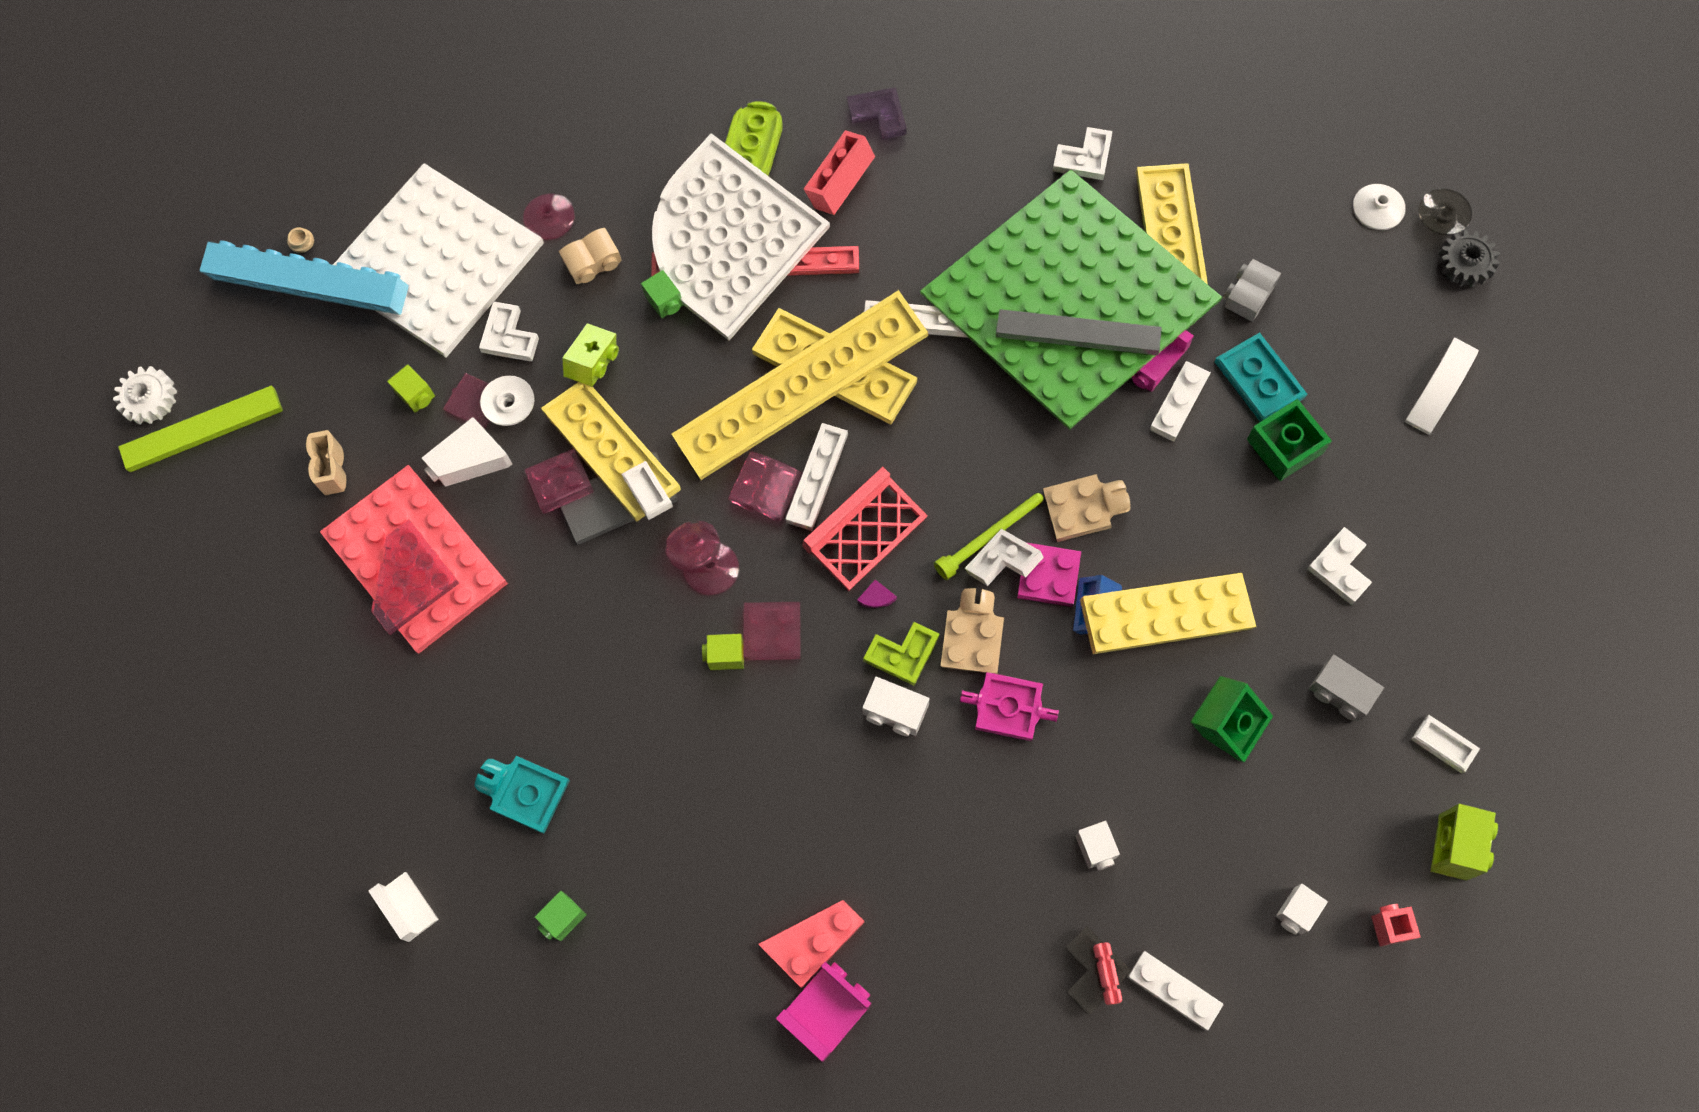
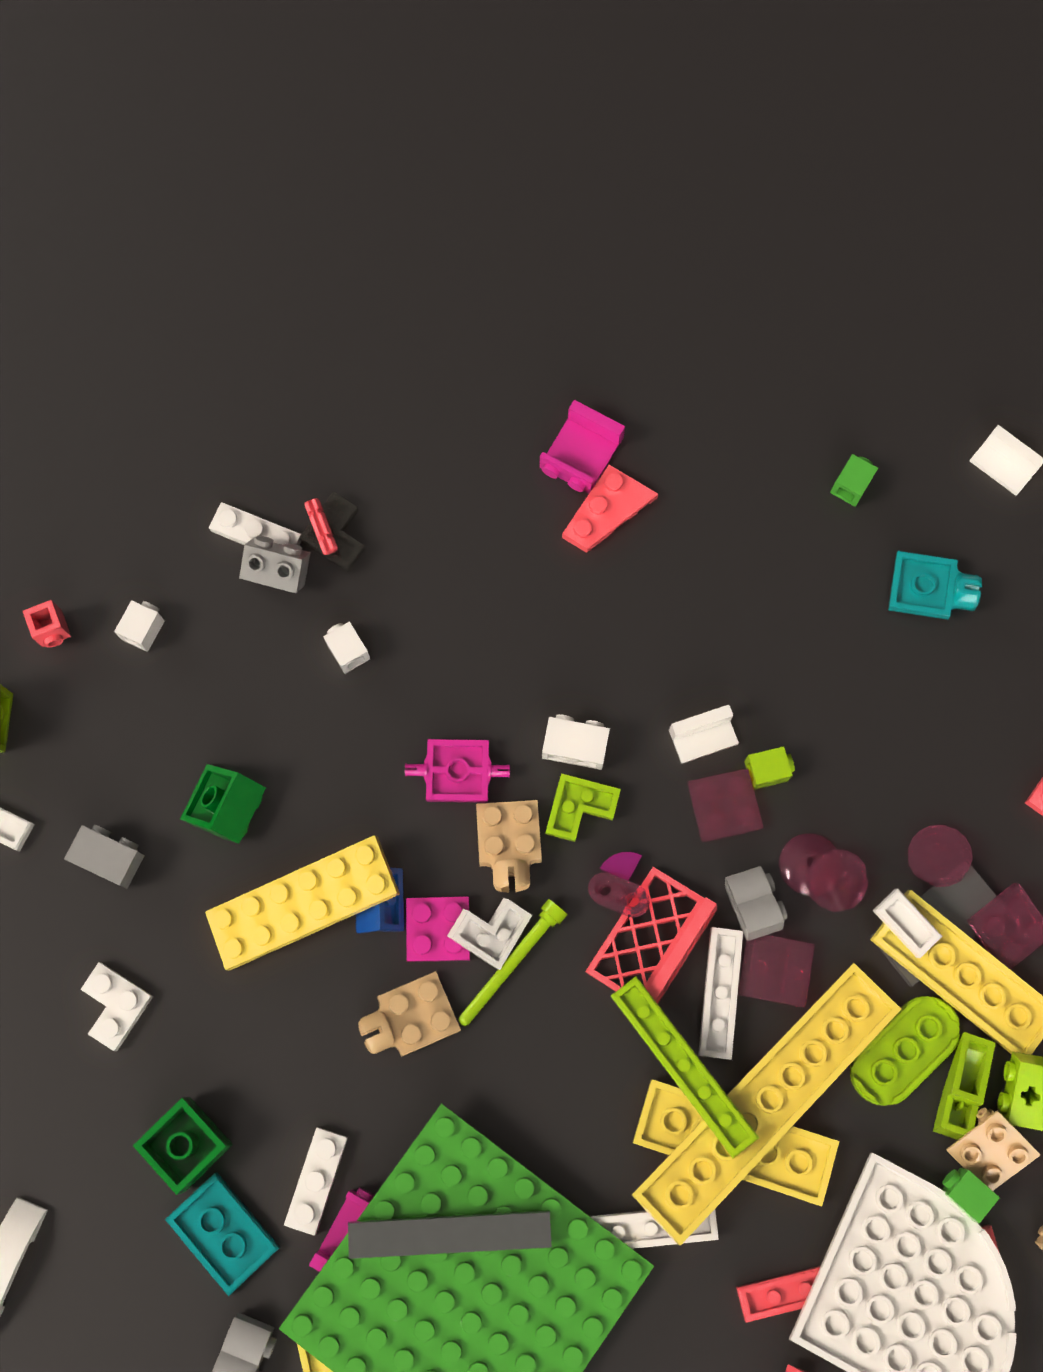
camera: 165 degrees right, 5 degrees up
(598, 549) = (940, 855): none -> clear pink tile
(631, 321) = (993, 1149): none -> tan hinge
(639, 369) = (964, 1086): none -> lime slope
(674, 405) = (906, 1051): none -> lime tile
(769, 538) = (754, 903): none -> light grey brick
(774, 696) = (703, 734): none -> white panel
(864, 418) = (685, 1067): none -> lime tile
(885, 568) = (619, 896): none -> clear pink plate
(1158, 942) = (274, 564): none -> light grey brick

